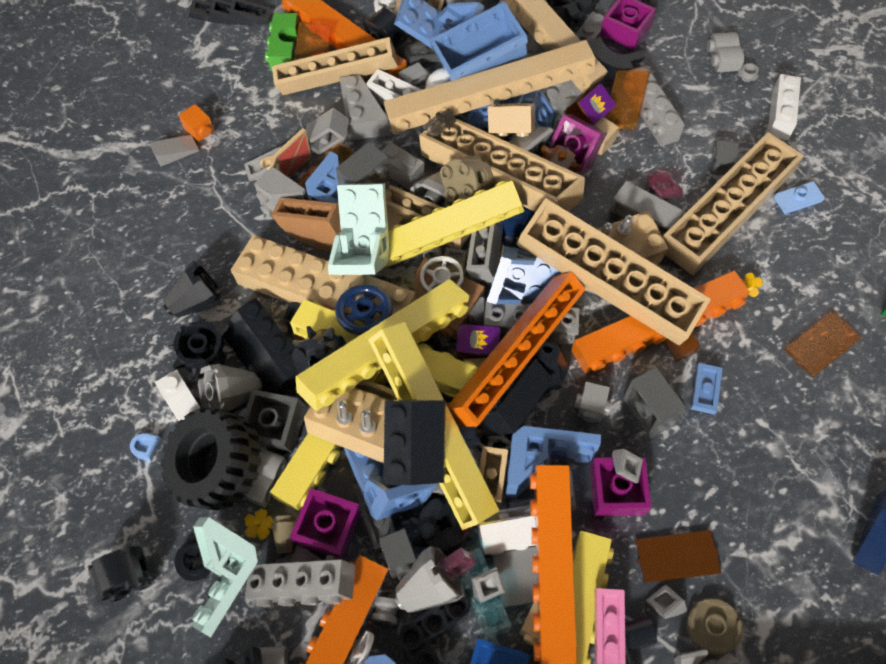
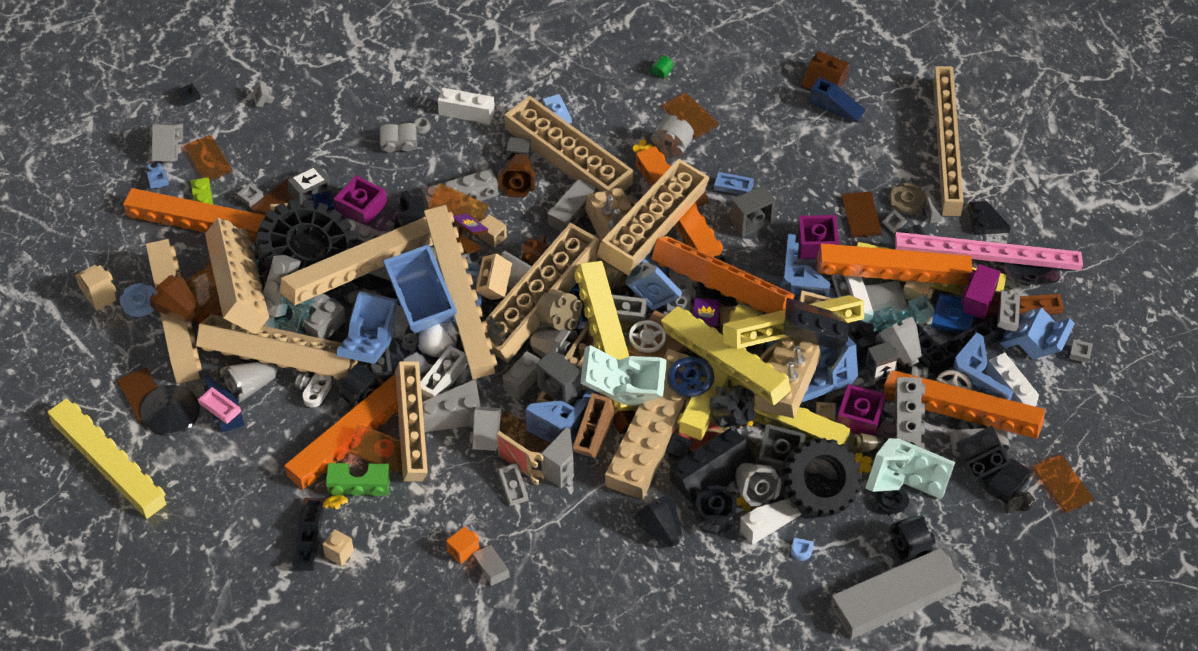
camera: 90 degrees left, 10 degrees down
(54, 555) = (896, 593): none -> light grey brick
(207, 30) = (338, 547): none -> tan brick
(261, 27) = (335, 501): none -> yellow plant
(340, 485) = (827, 410): none -> tan tile
(457, 562) = (889, 316): clear pink tile -> none
(487, 585) = (900, 309): light grey slope -> none
(579, 138) = (506, 236): magenta brick -> none
(593, 402) = (750, 251): light grey brick -> none
(627, 464) = (807, 223): light grey slope -> none
(664, 185) = (549, 191): clear pink tile -> none
(685, 154) = (517, 177): none -> reddish brown cone
(769, 311) = (672, 136): none -> light grey brick

